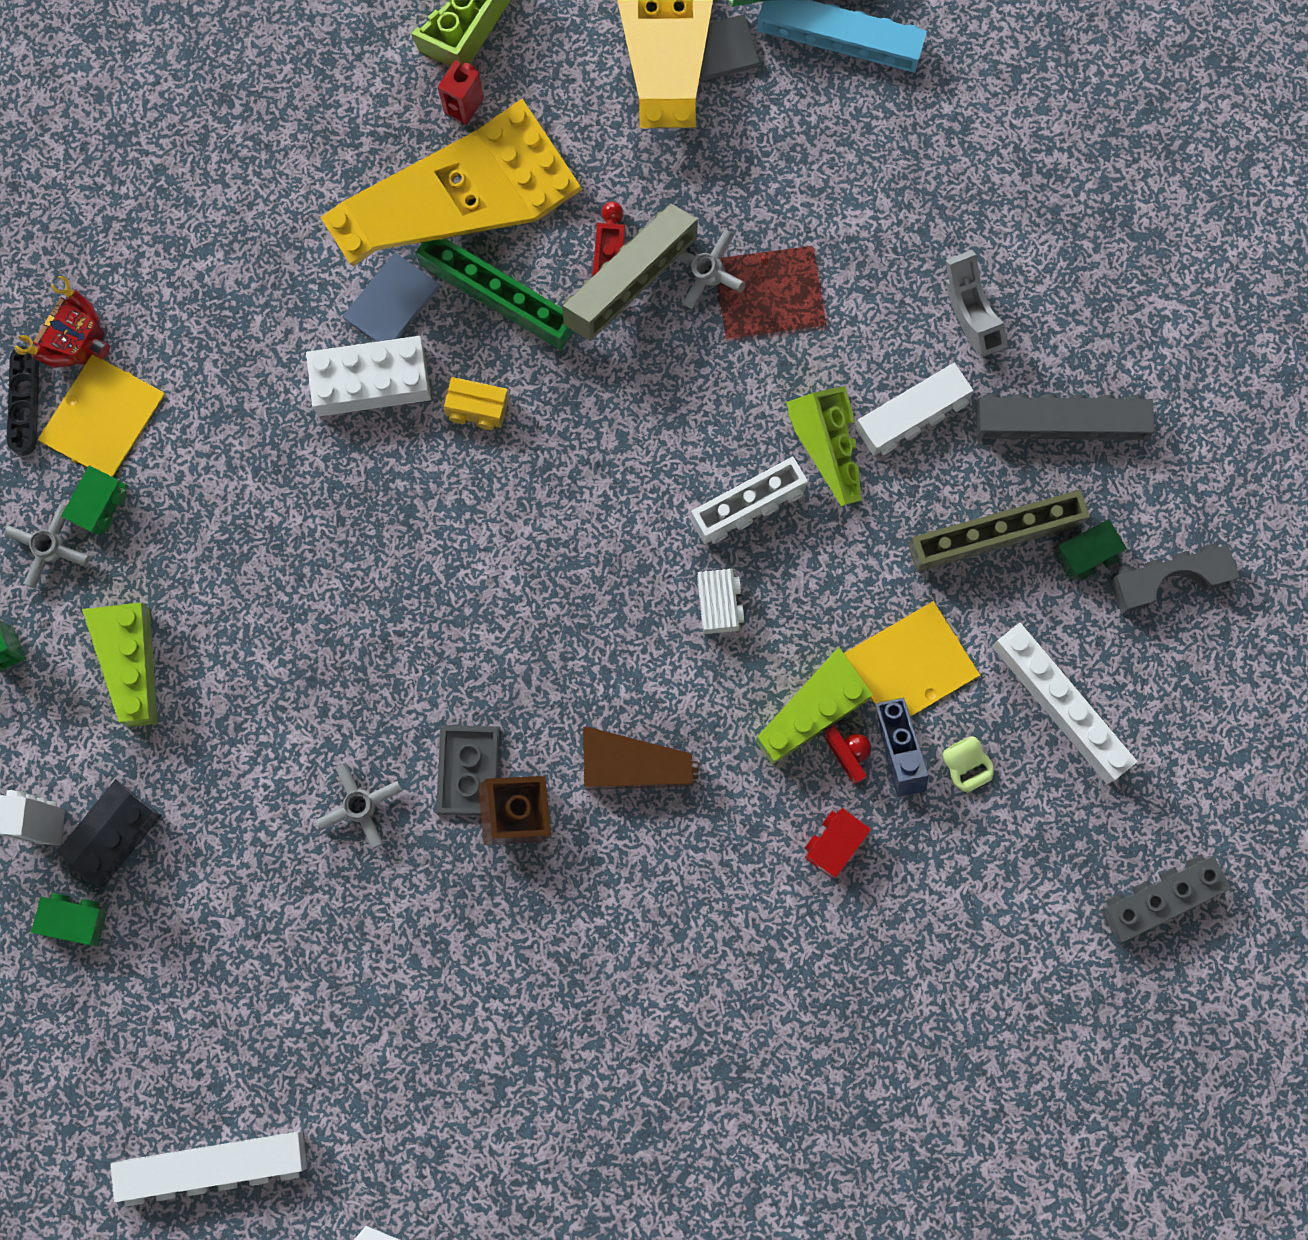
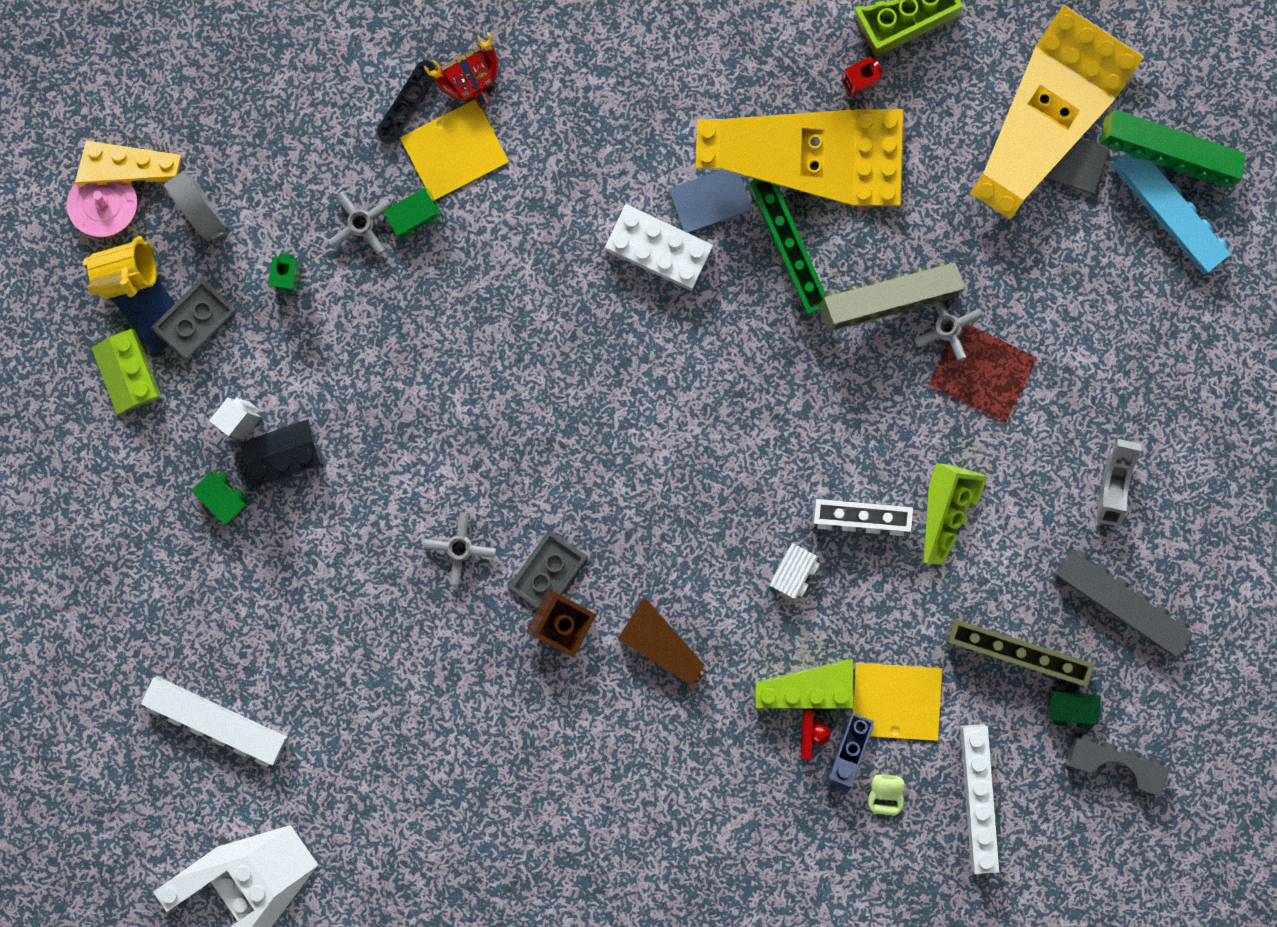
camera: 35 degrees right, 10 degrees up
(126, 659) = (366, 340): lime wedge -> none
(476, 403) = (720, 317): yellow brick -> none
(608, 235) = (893, 257): red plate -> none
(836, 843) = (761, 787): red brick -> none
(914, 409) = (1023, 526): white brick -> none

